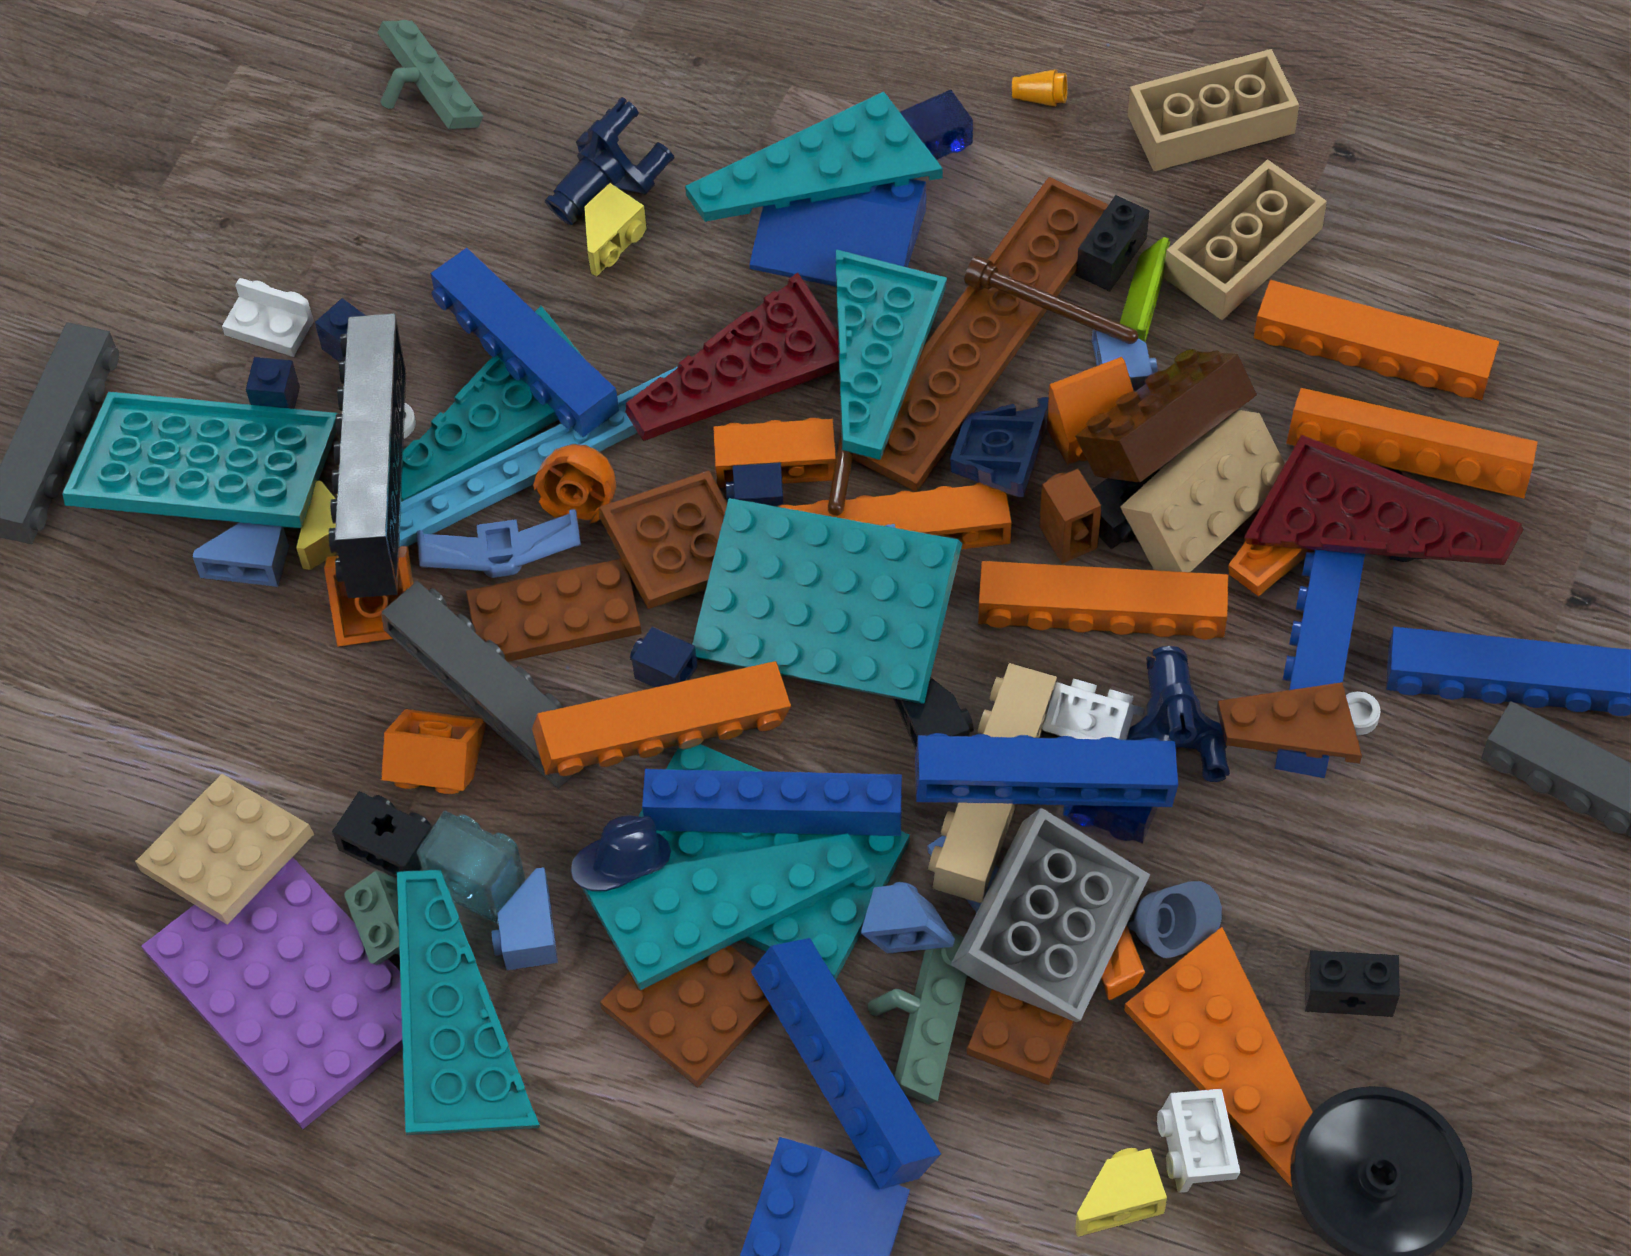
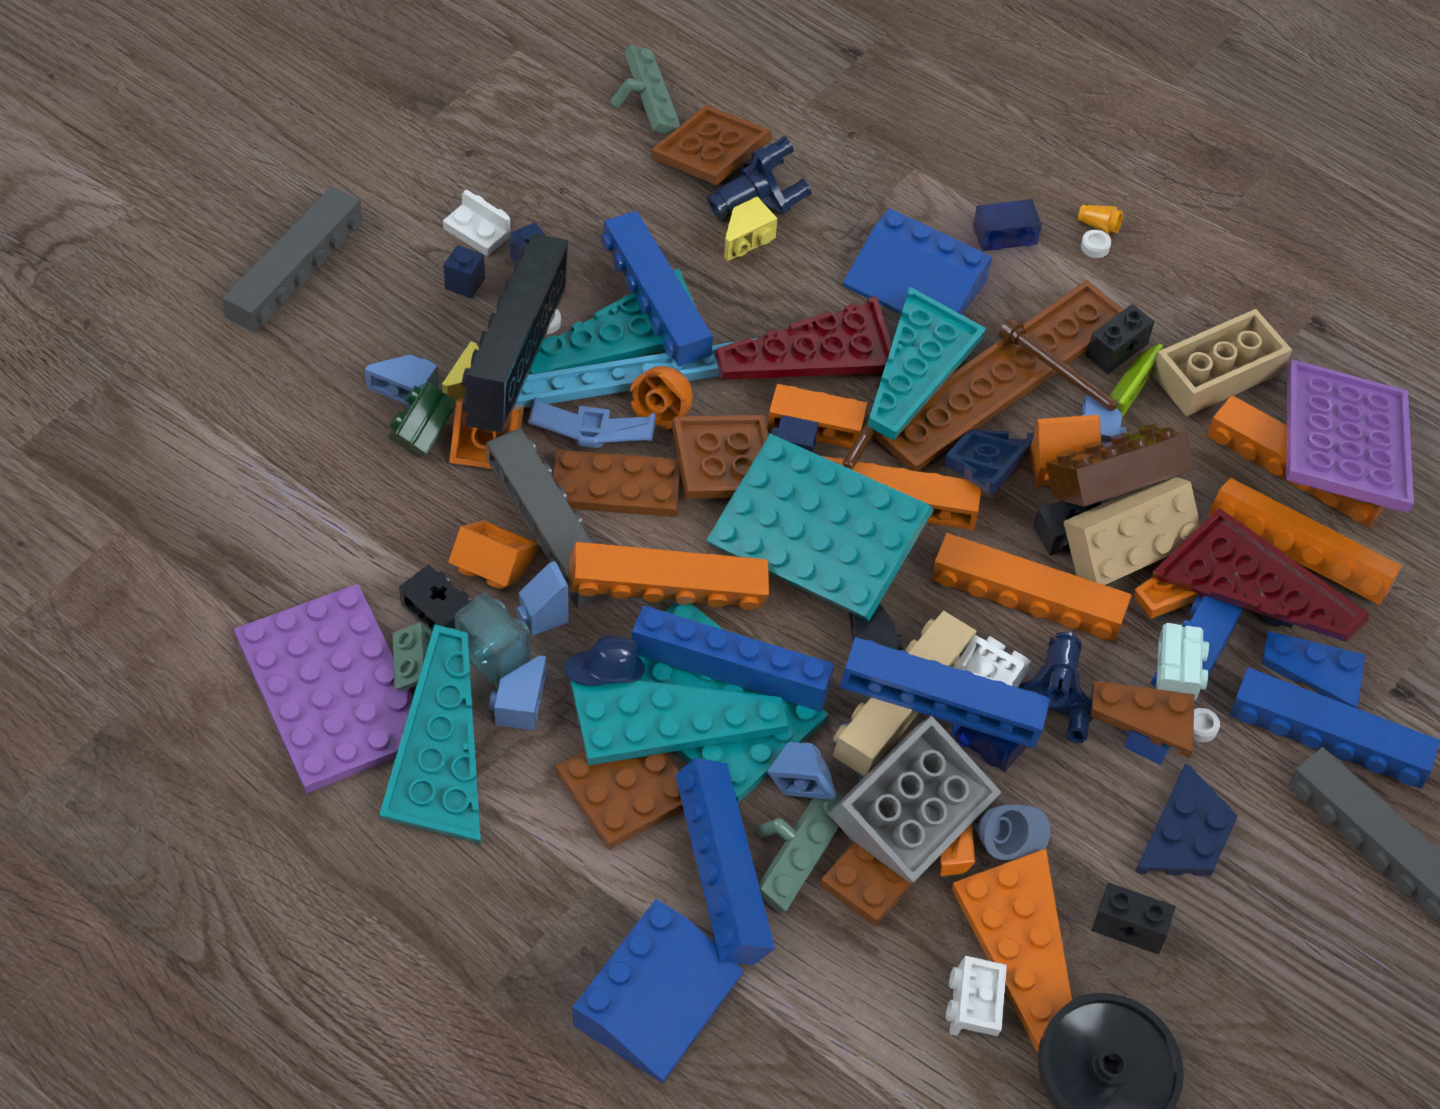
camera: 10 degrees right, 5 degrees down
(202, 459) = (394, 305): teal plate -> none
(224, 848) = (317, 577): tan plate -> none
(286, 602) = (421, 419): none -> dark green brick
(518, 795) = (544, 601): none -> medium blue slope
(528, 128) = (711, 144): none -> dark orange plate
(662, 659) = (685, 535): dark blue brick -> none
(825, 161) = (917, 221): teal wing -> none
(1044, 123) = (1096, 243): none -> white tile
(1069, 515) = (1024, 519): dark orange brick -> none
(1122, 1193) = (904, 1020): light yellow slope -> none
(1212, 110) = (1226, 265): tan brick -> none
(1314, 643) = (1181, 659): none -> light aqua brick
(1383, 850) = (1189, 829): none -> dark blue wing
(1426, 293) = (1348, 436): none -> medium lavender plate
(1479, 597) = (1323, 667): none -> blue wing

